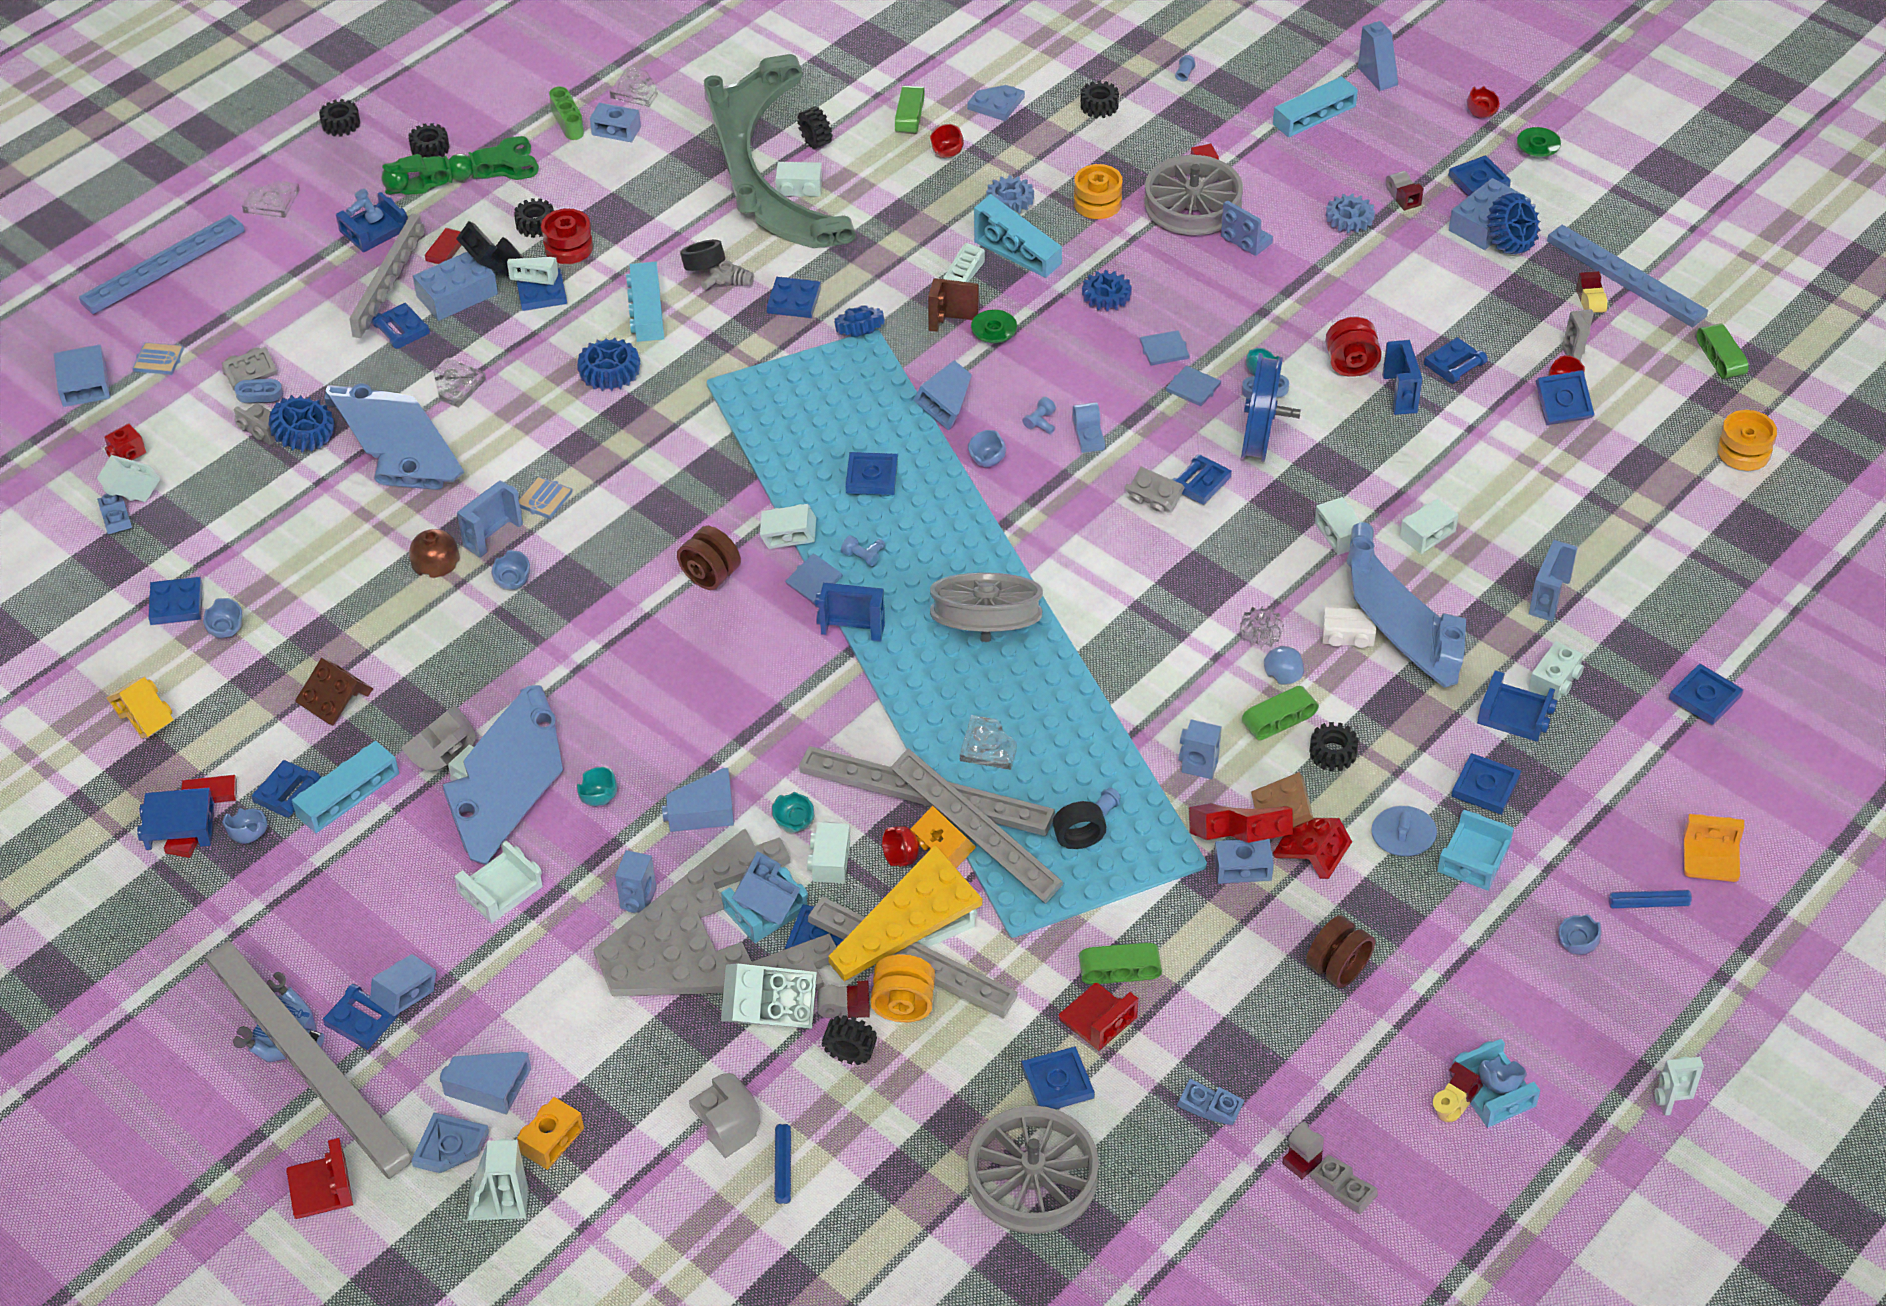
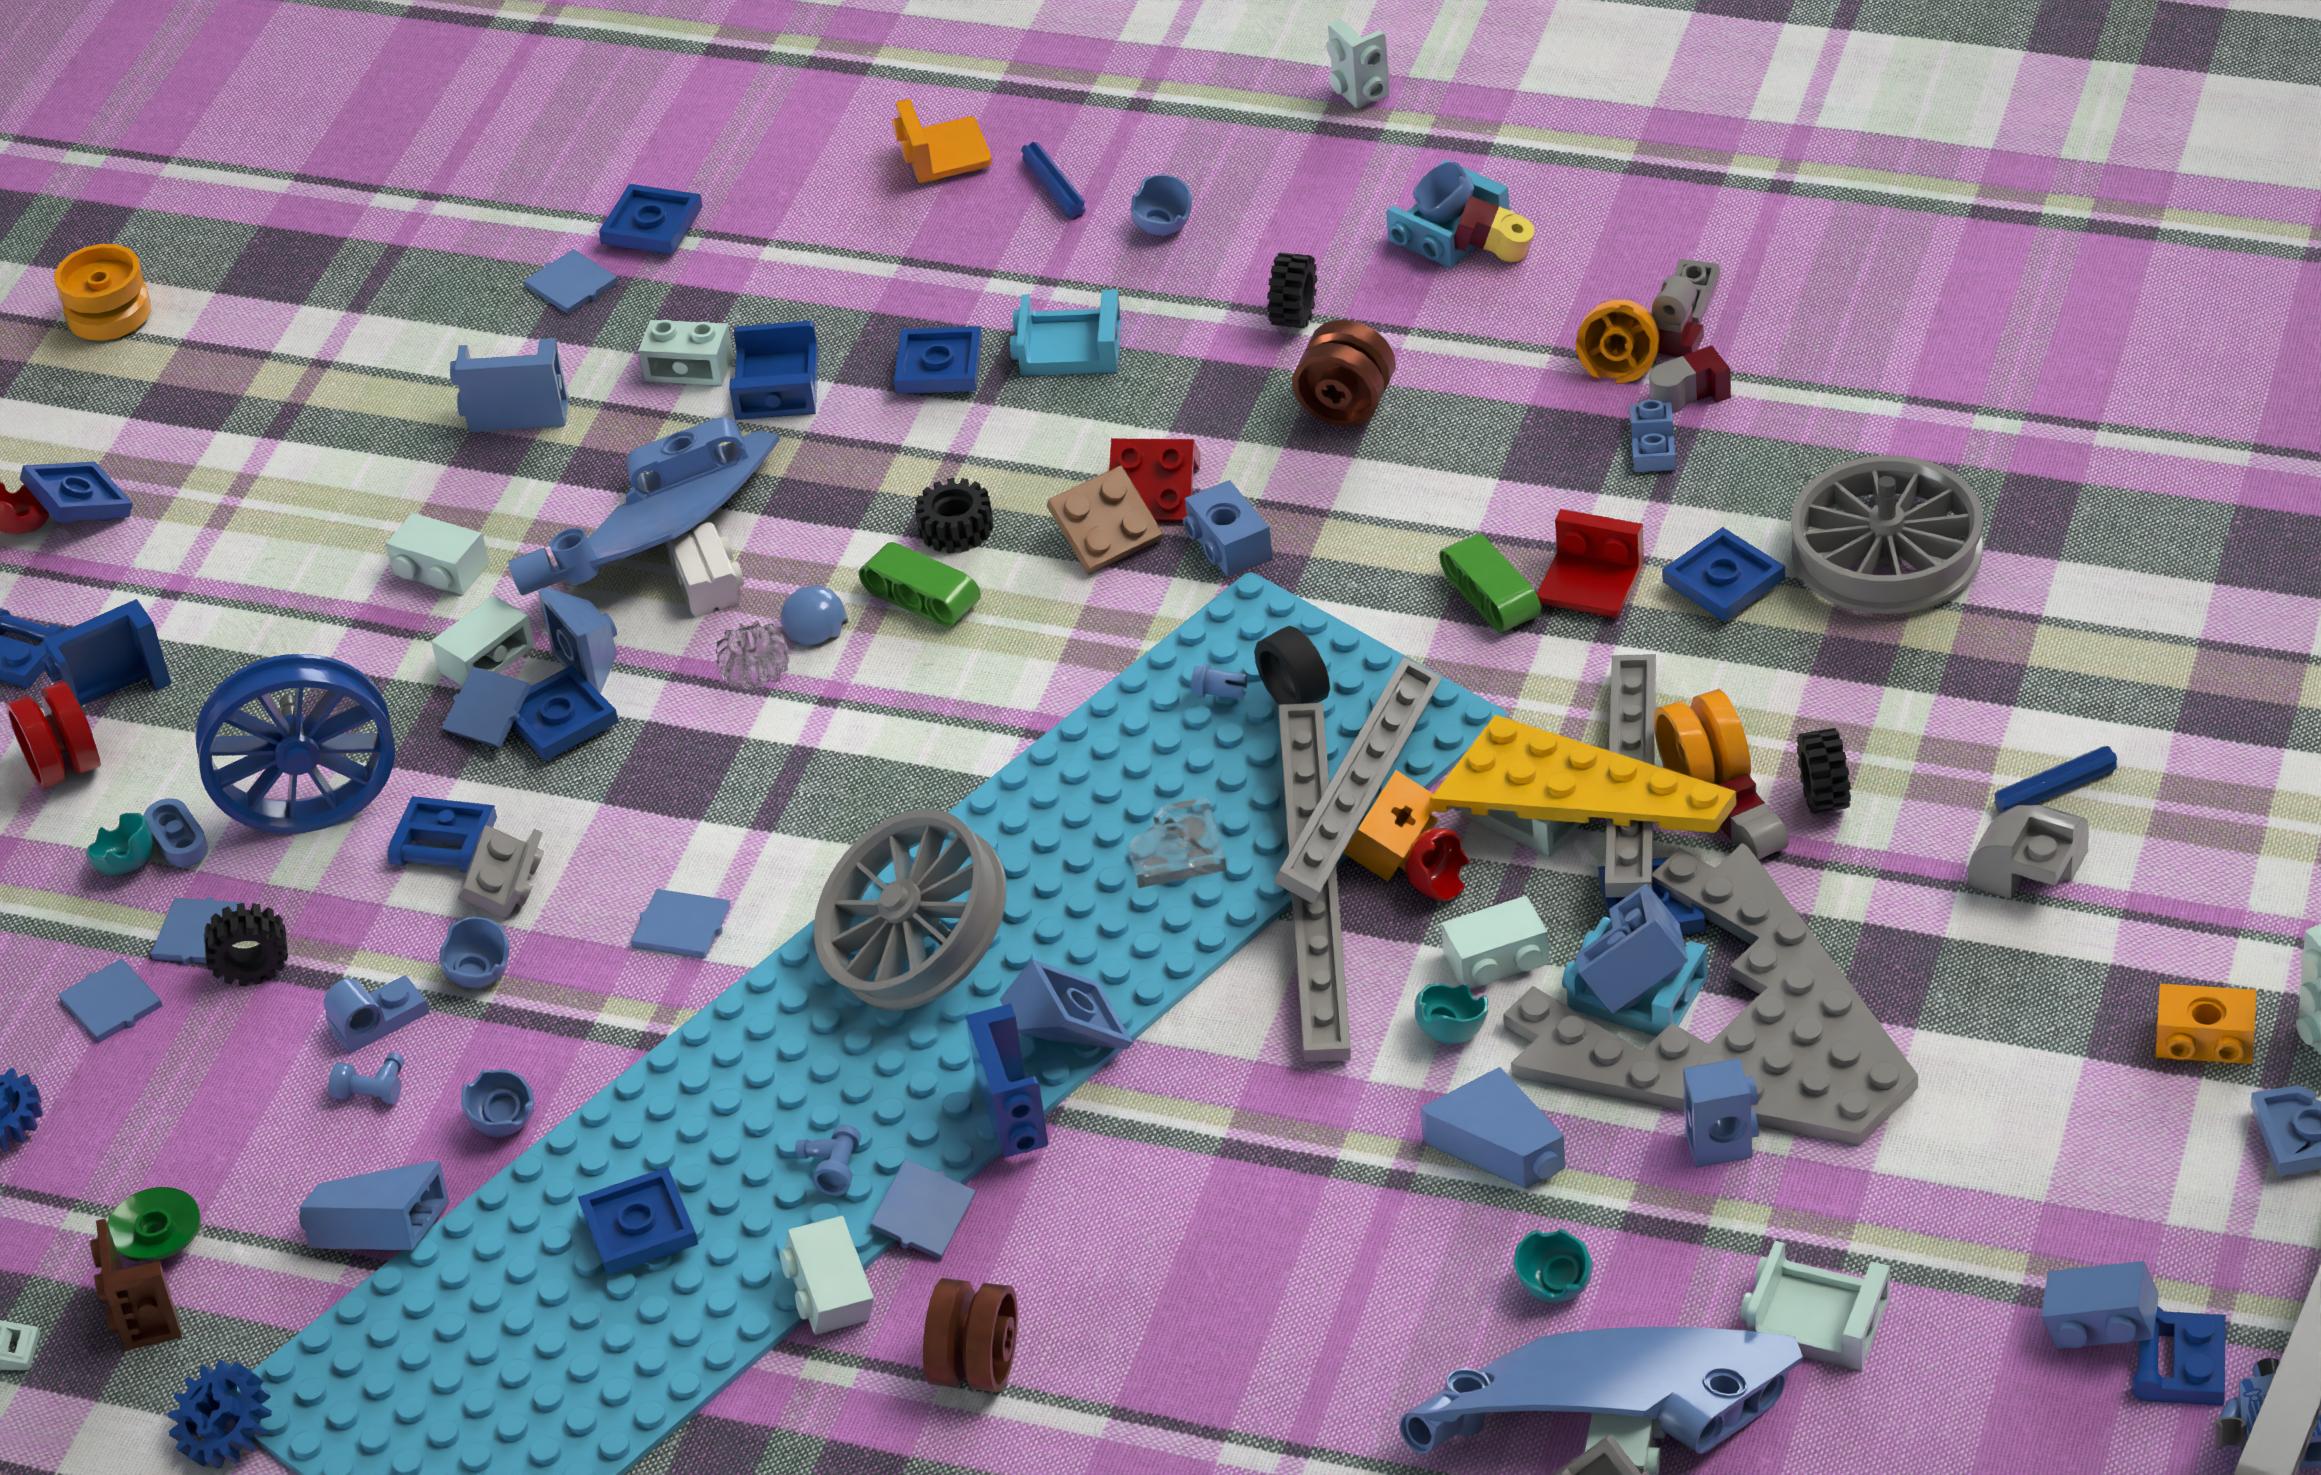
camera: 110 degrees left, 5 degrees down
(486, 1079) = (2174, 1135): medium blue slope -> none
(768, 996) = (1818, 886): light aqua slope -> none
(890, 658) = (1064, 1008): none -> medium blue slope
(1080, 553) = (680, 923): none -> medium blue piece
(1097, 466) = (474, 952): none -> medium blue hair
(1153, 385) = (245, 962): none -> black tyre
(1200, 749) = (1057, 614): medium blue brick -> none
(1247, 825) = (1183, 558): red arch -> none
(1249, 1132) = (1691, 378): none -> leg
(1266, 543) = (562, 713): none -> blue plate
(1284, 513) = (486, 707): none -> medium blue piece
(1307, 1106) = (1618, 340): none -> light orange cylinder
(1309, 555) = (579, 635): none -> medium blue slope
(1404, 831) = (1067, 414): medium blue shield -> none
(1445, 961) = (1292, 290): none -> black tyre
(1668, 649) = (571, 281): none -> medium blue piece

